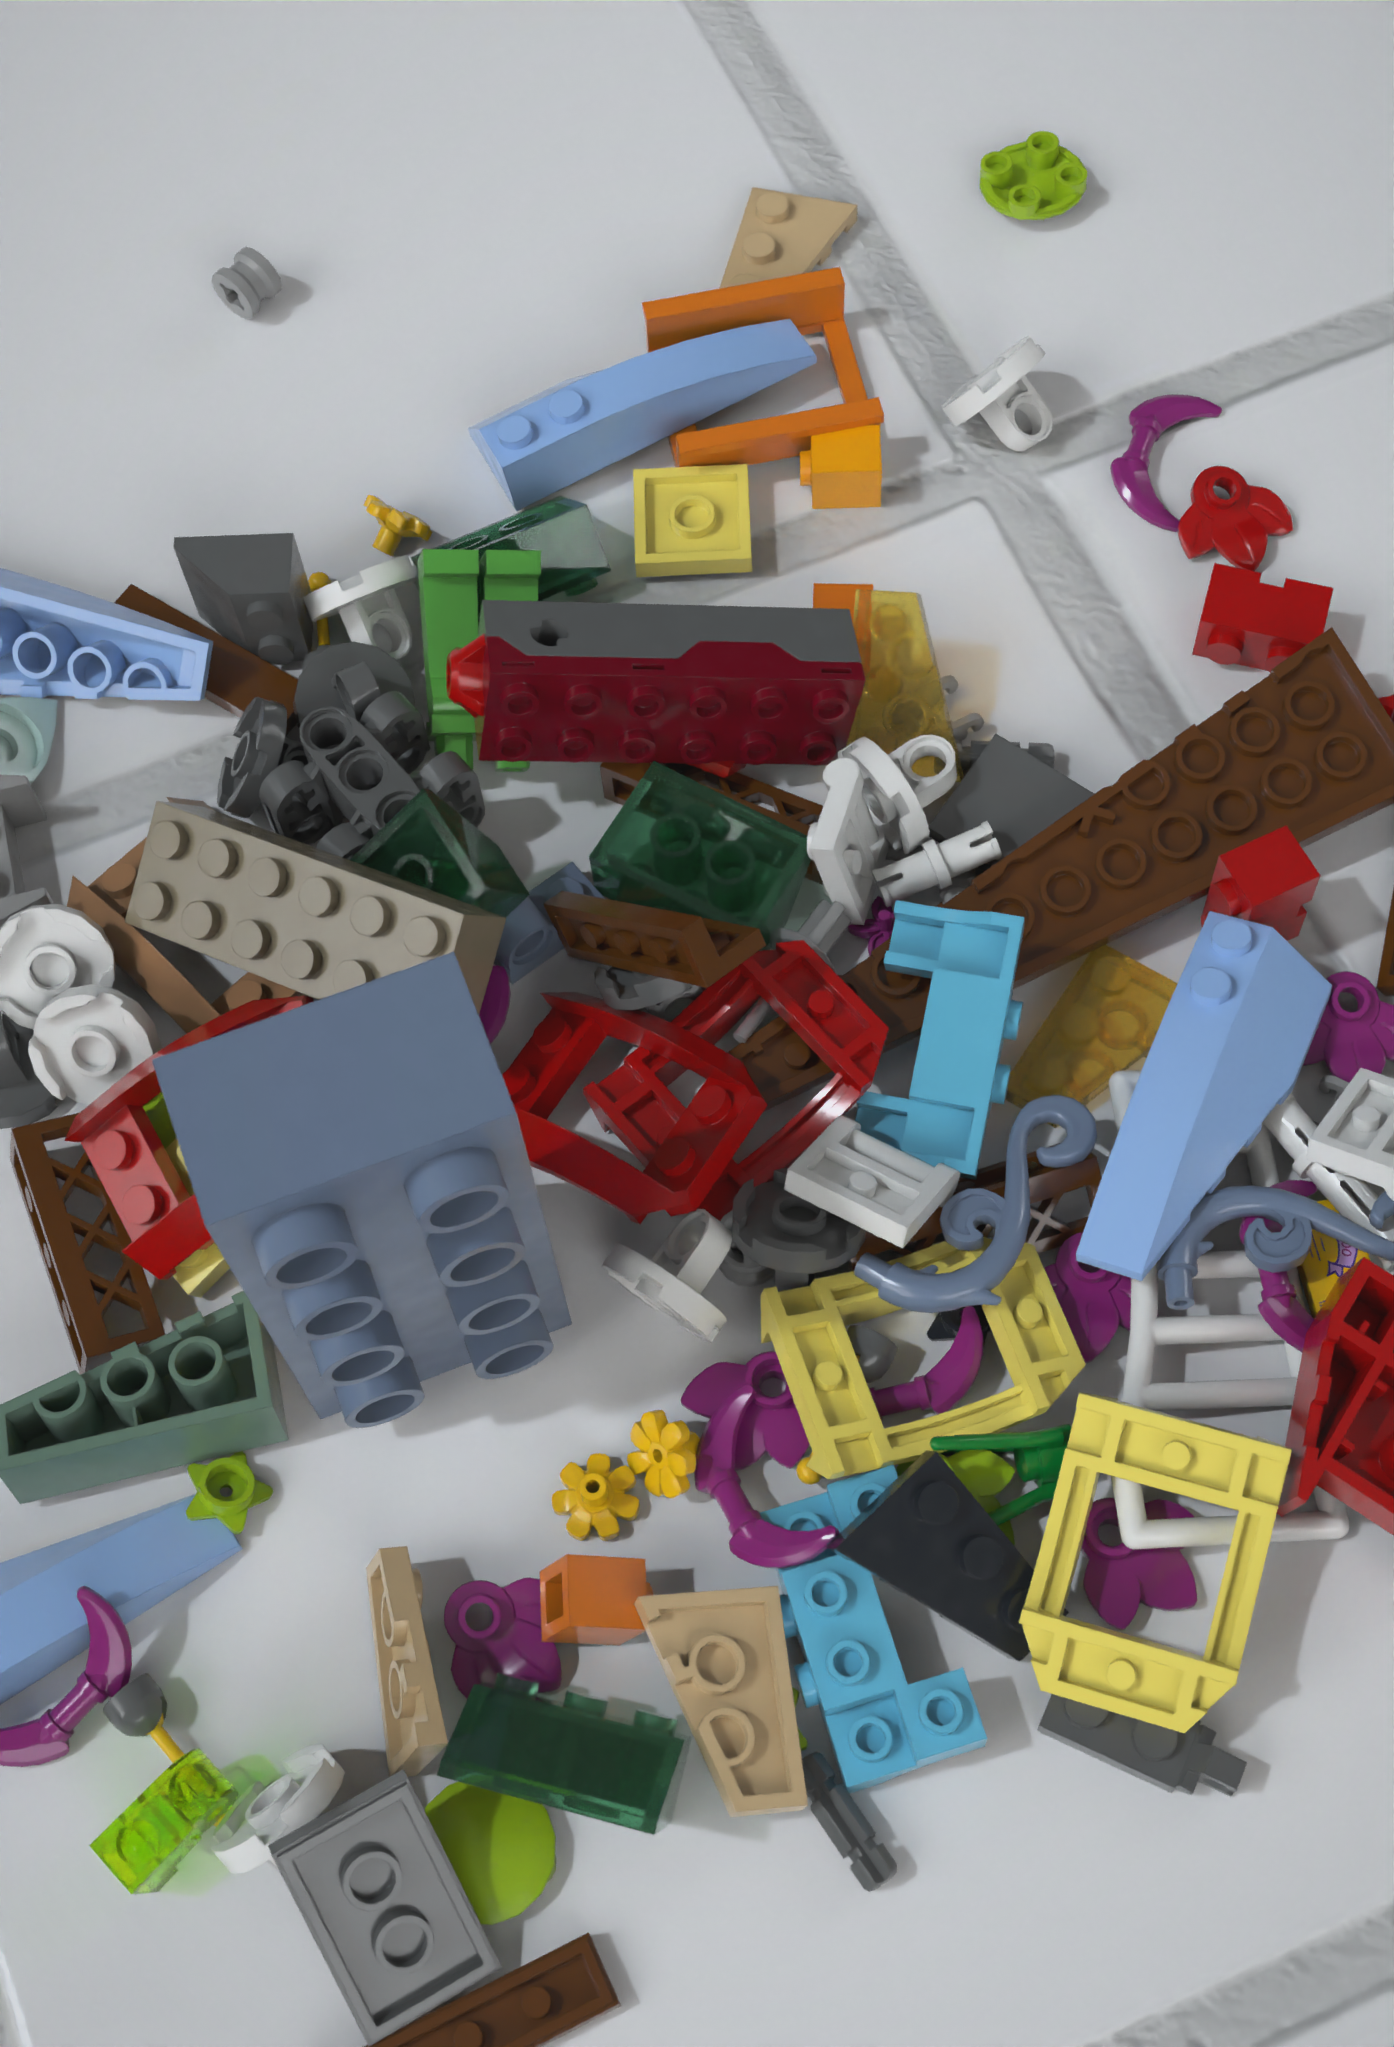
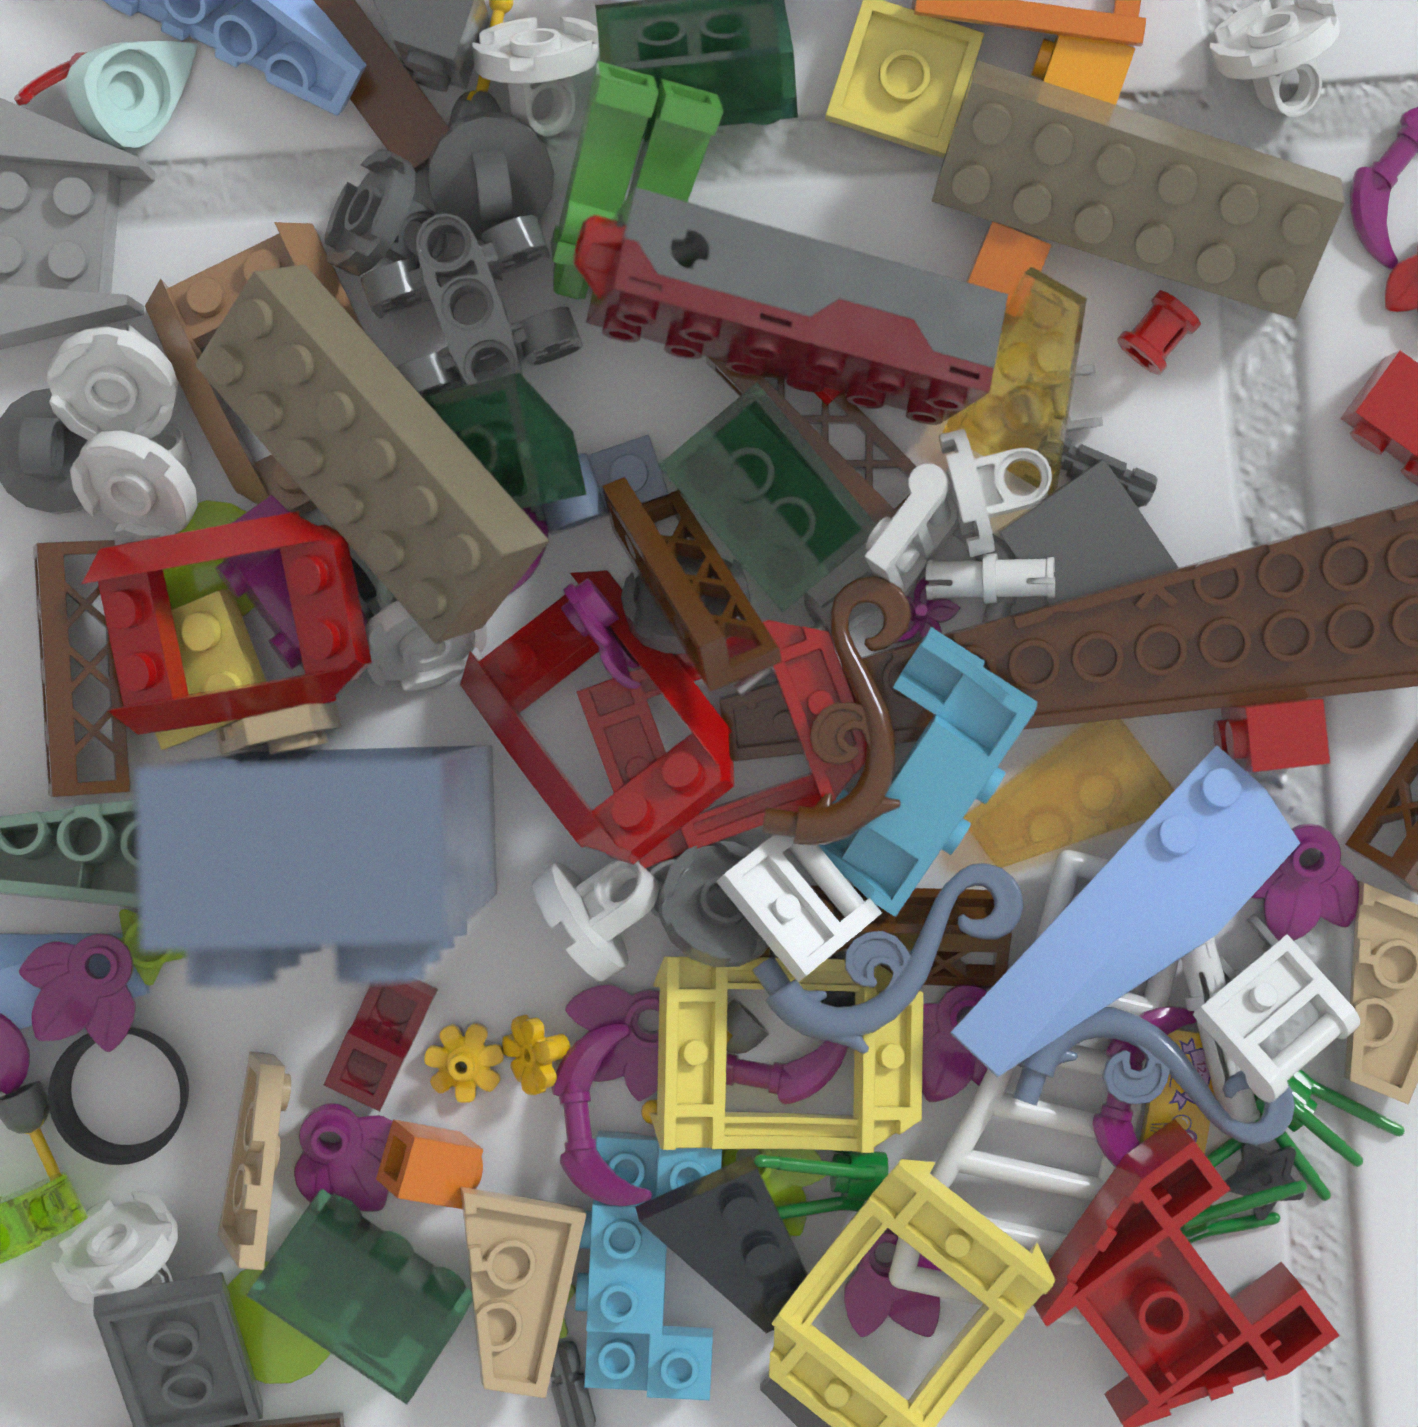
camera: 15 degrees right, 25 degrees up
(165, 1552) = (75, 997): none -> magenta plate
(193, 1607) = (78, 1135): none -> black tyre
(499, 1501) = (380, 1040): none -> dark red slope
(575, 996) = (594, 615): none -> magenta plate
(866, 993) = (868, 799): none -> reddish brown plant
(931, 519) = (1138, 190): none -> dark tan brick
(999, 632) = (1159, 332): none -> red bush

